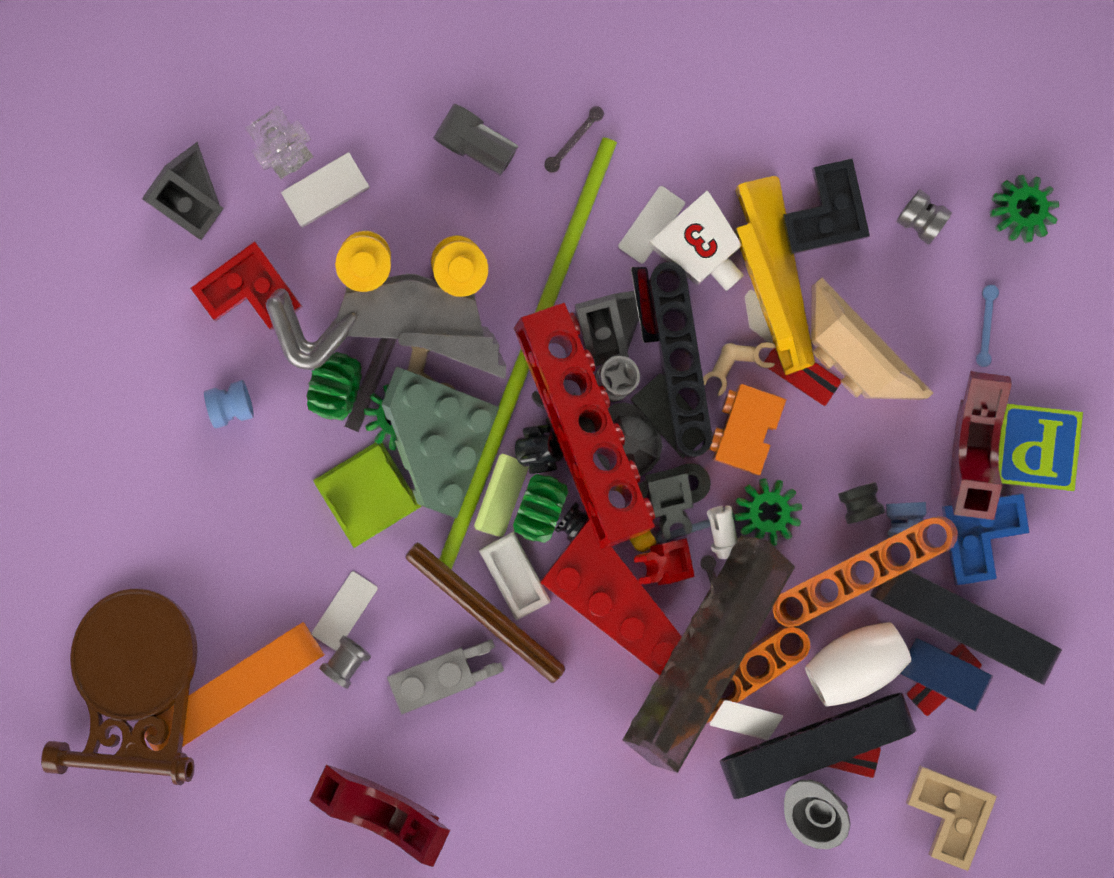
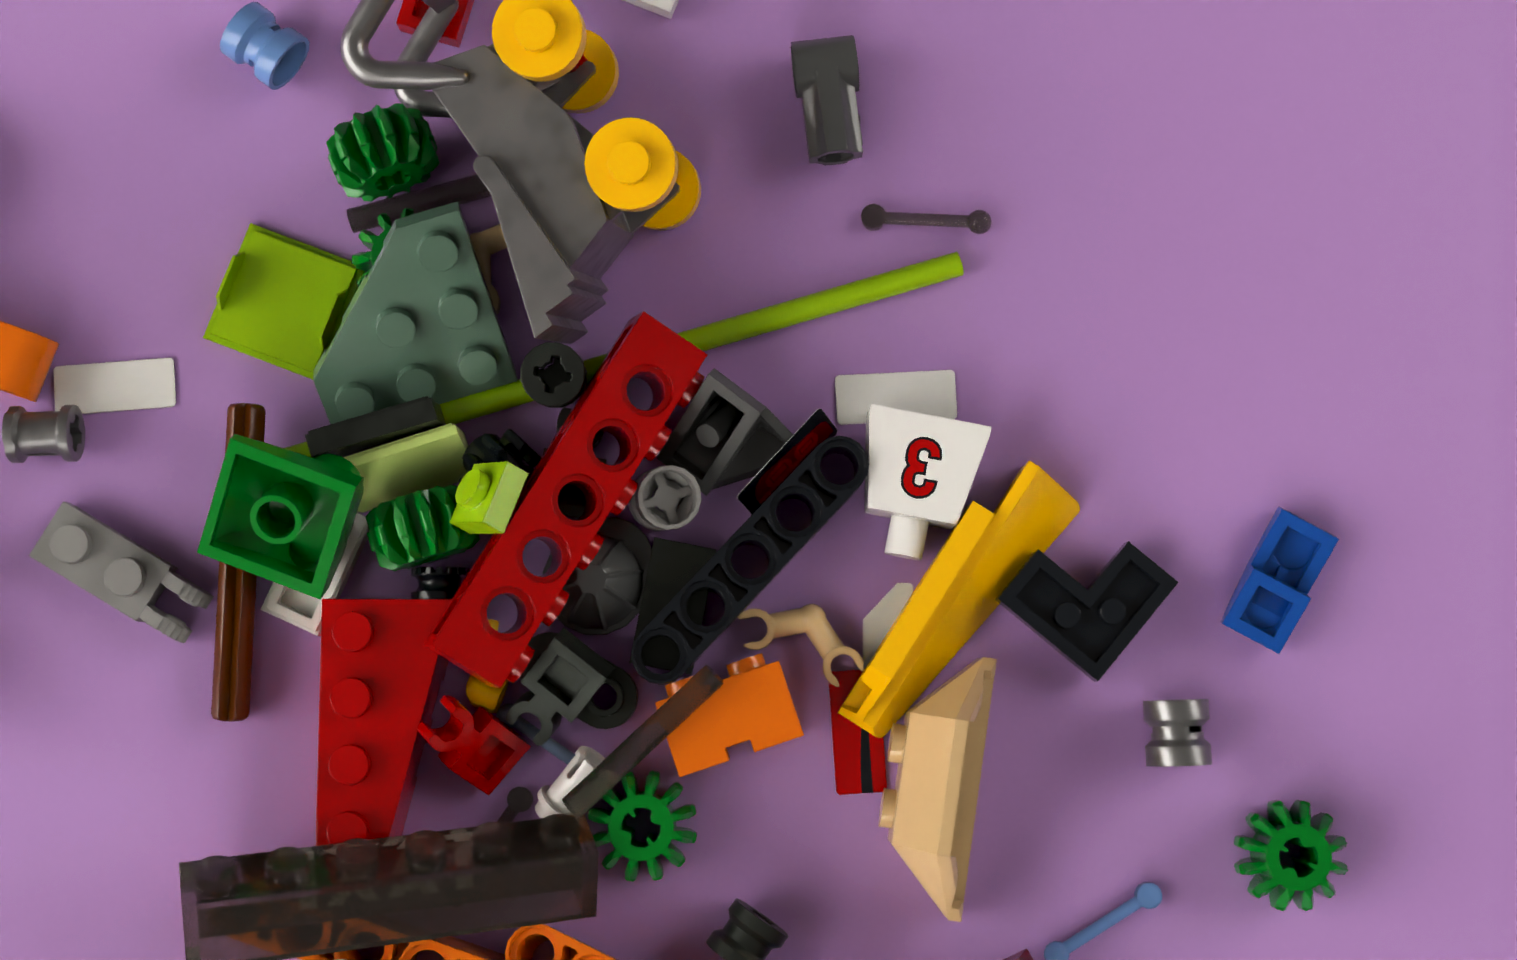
camera: 50 degrees right, 5 degrees down
(473, 494) = (375, 428): none -> pearl dark grey tile
(484, 570) = (282, 514): none -> green slope
(512, 386) = (562, 386): none -> pearl dark grey wheel
(556, 463) = (488, 497): none -> lime plate
(729, 479) = (642, 741): none -> clear smoke bar
(888, 107) = (1278, 580): none -> blue slope

